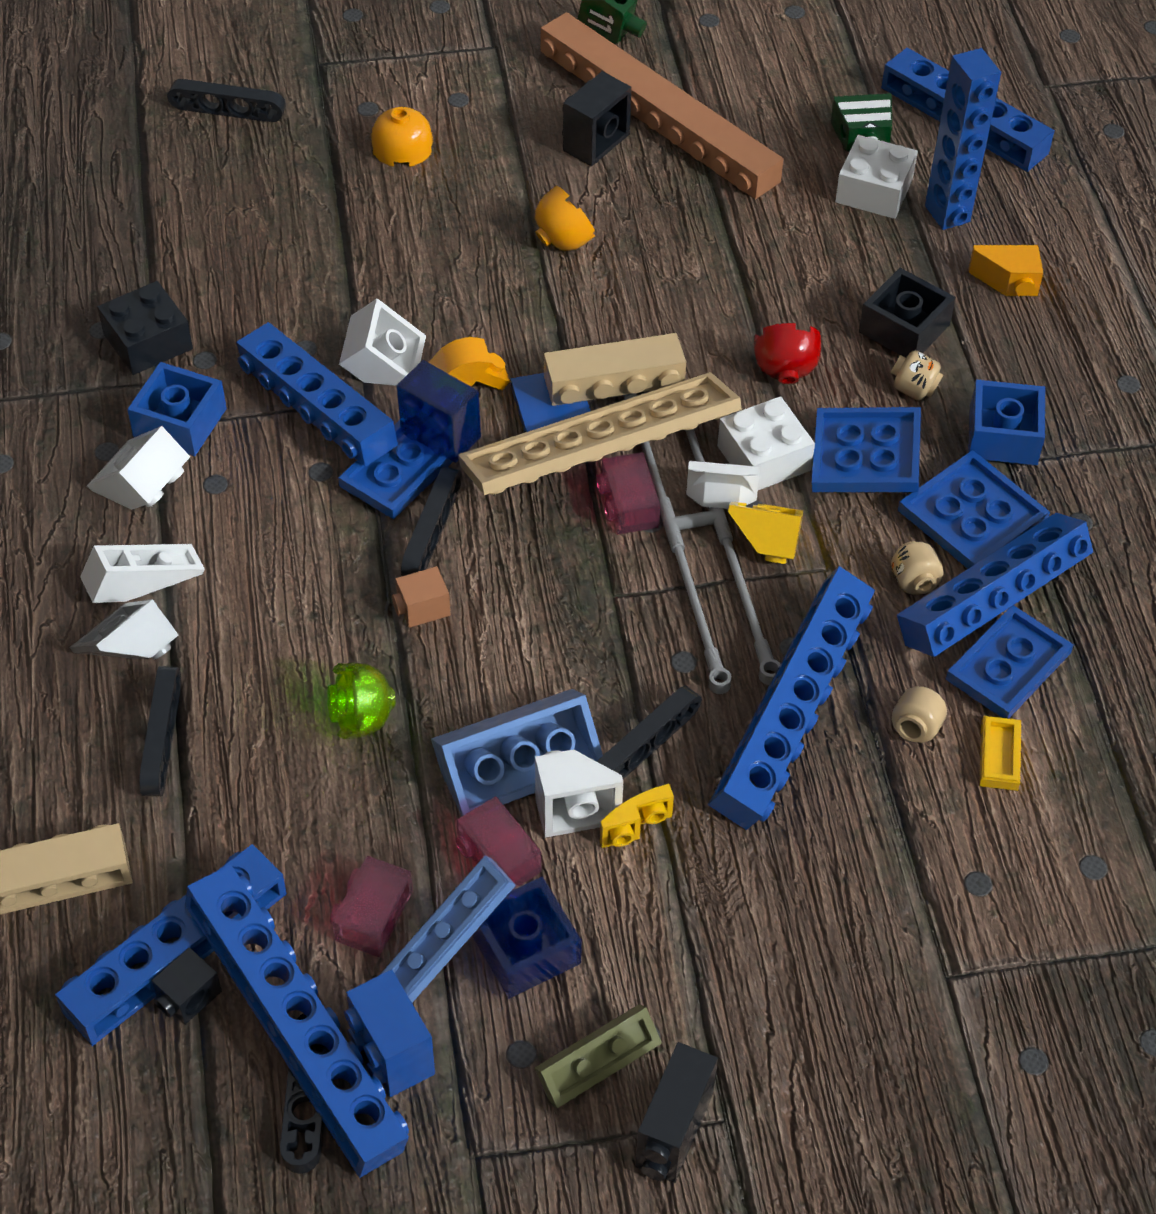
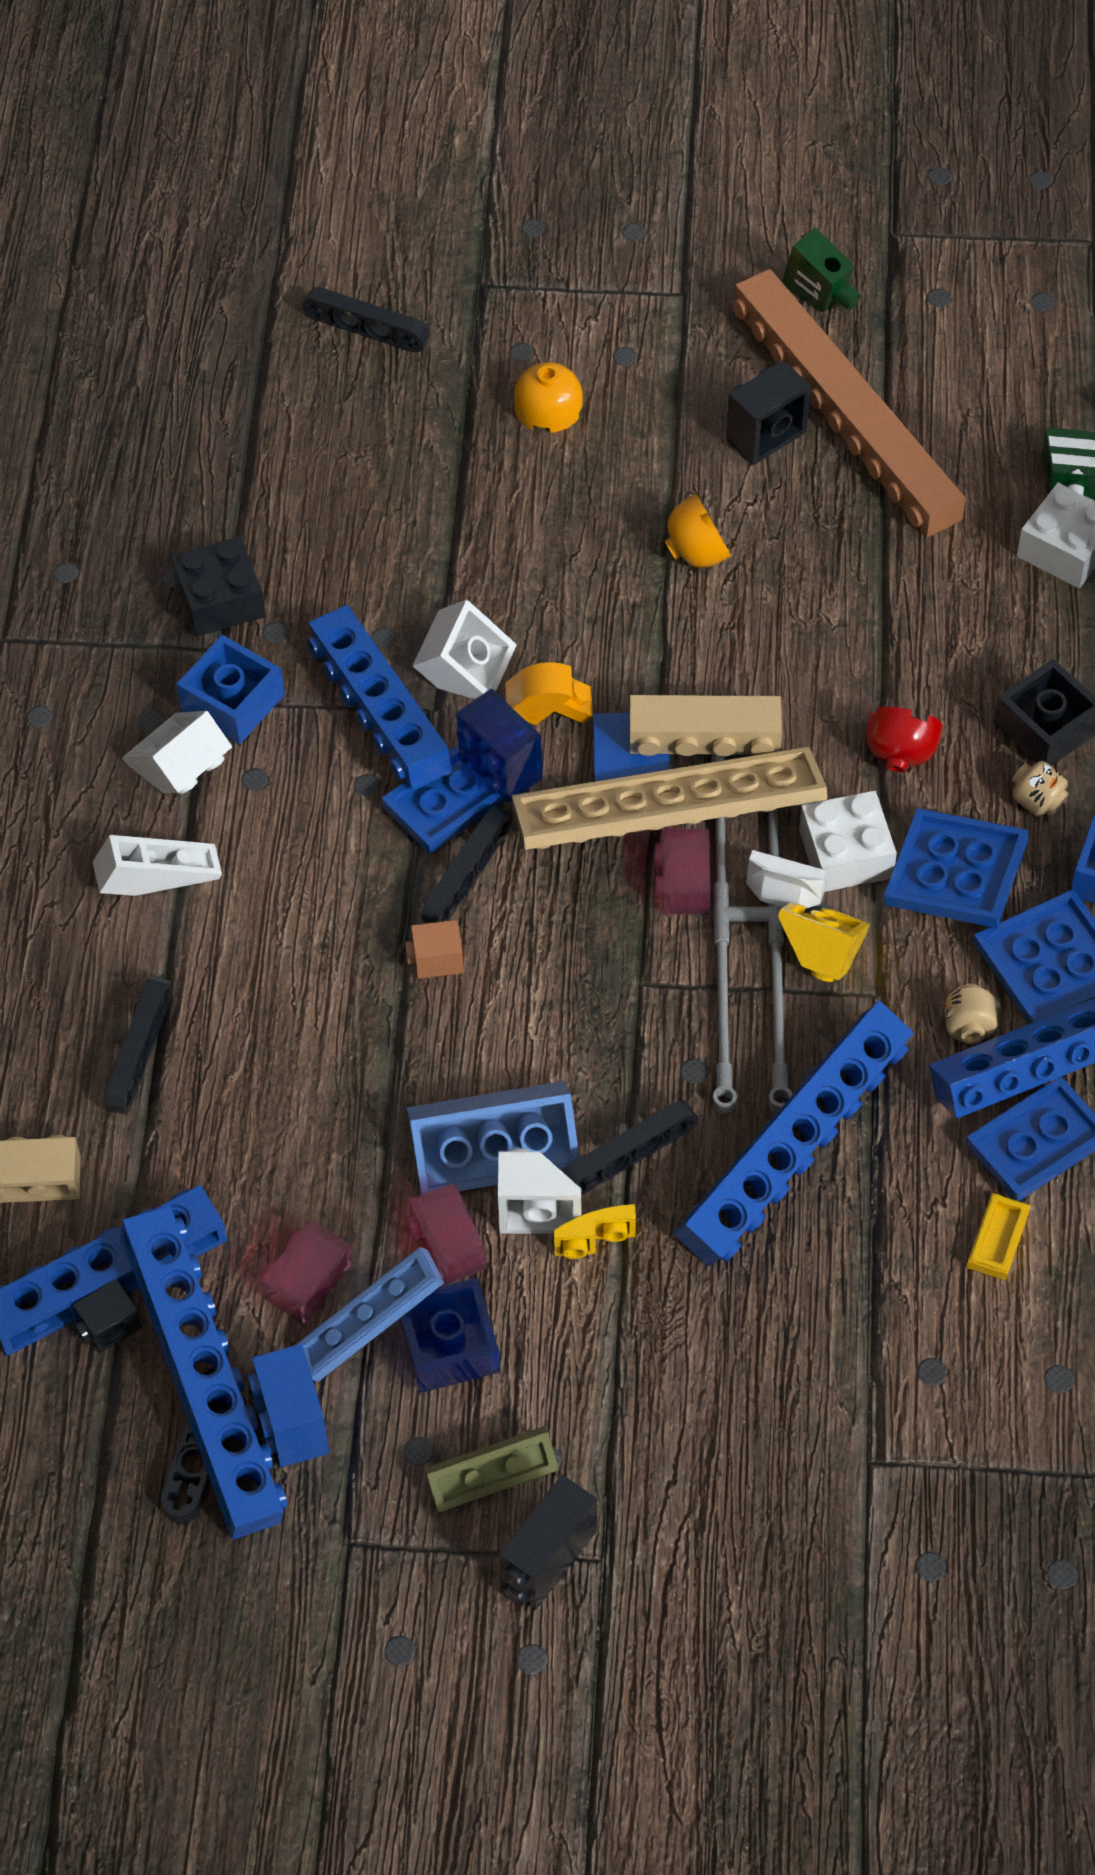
camera: 15 degrees right, 5 degrees up
(131, 631) = (128, 932): slope -> none
(359, 700) = (344, 1051): clear neon green cylinder -> none
(919, 714) = (921, 1179): tan head -> none

